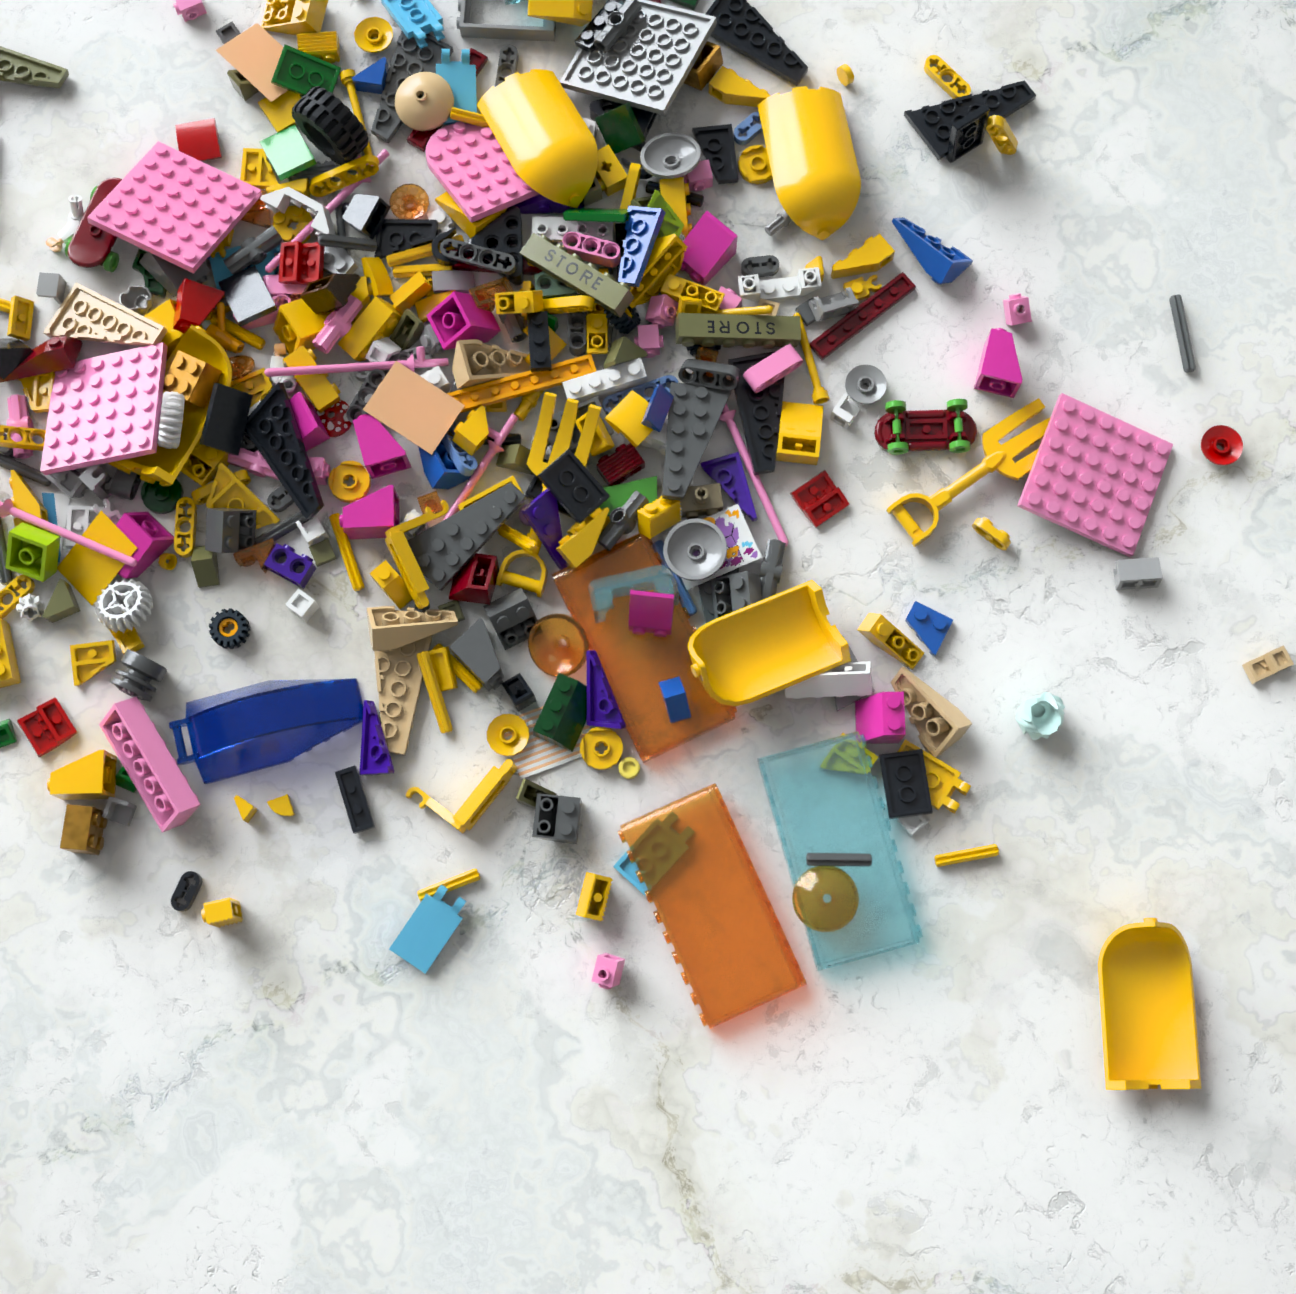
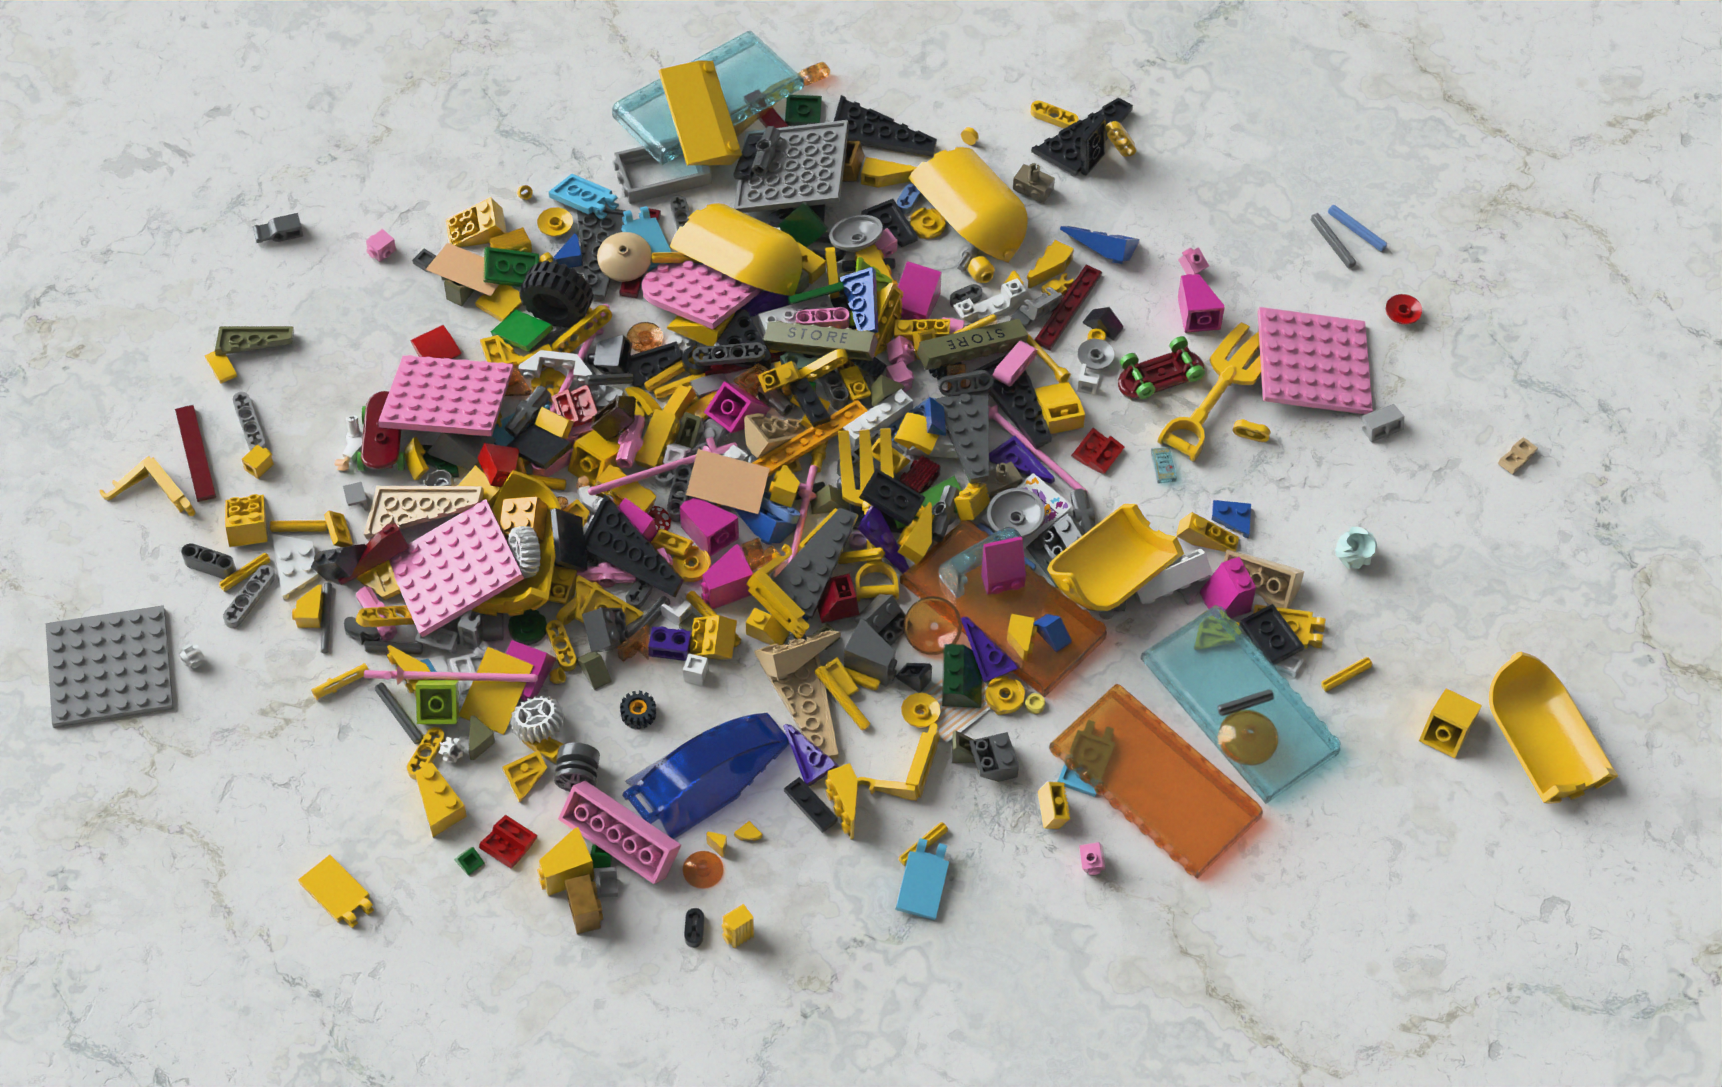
camera: 25 degrees left, 20 degrees down
(125, 260) = (414, 459): none -> yellow slope
(232, 832) = (706, 876): none -> clear orange dish
(271, 275) = (554, 423): none -> yellow slope
(332, 577) = (713, 637): none -> yellow slope
(337, 452) = (672, 543): none -> yellow slope
(388, 809) = (843, 791): none -> yellow slope
(405, 502) = (754, 554): none -> clear orange slope
(640, 691) = (1020, 632): none -> yellow slope
(788, 241) = (981, 269): none -> yellow head
(878, 360) = (1096, 334): none -> yellow tile
(881, 539) = (1163, 465): none -> clear light blue tile
(888, 155) = (1033, 182): none -> dark tan brick
(891, 348) = (1105, 320): none -> black slope
(1050, 955) = (1450, 722): none -> yellow slope
(1216, 327) = (1357, 227): none -> medium blue axle

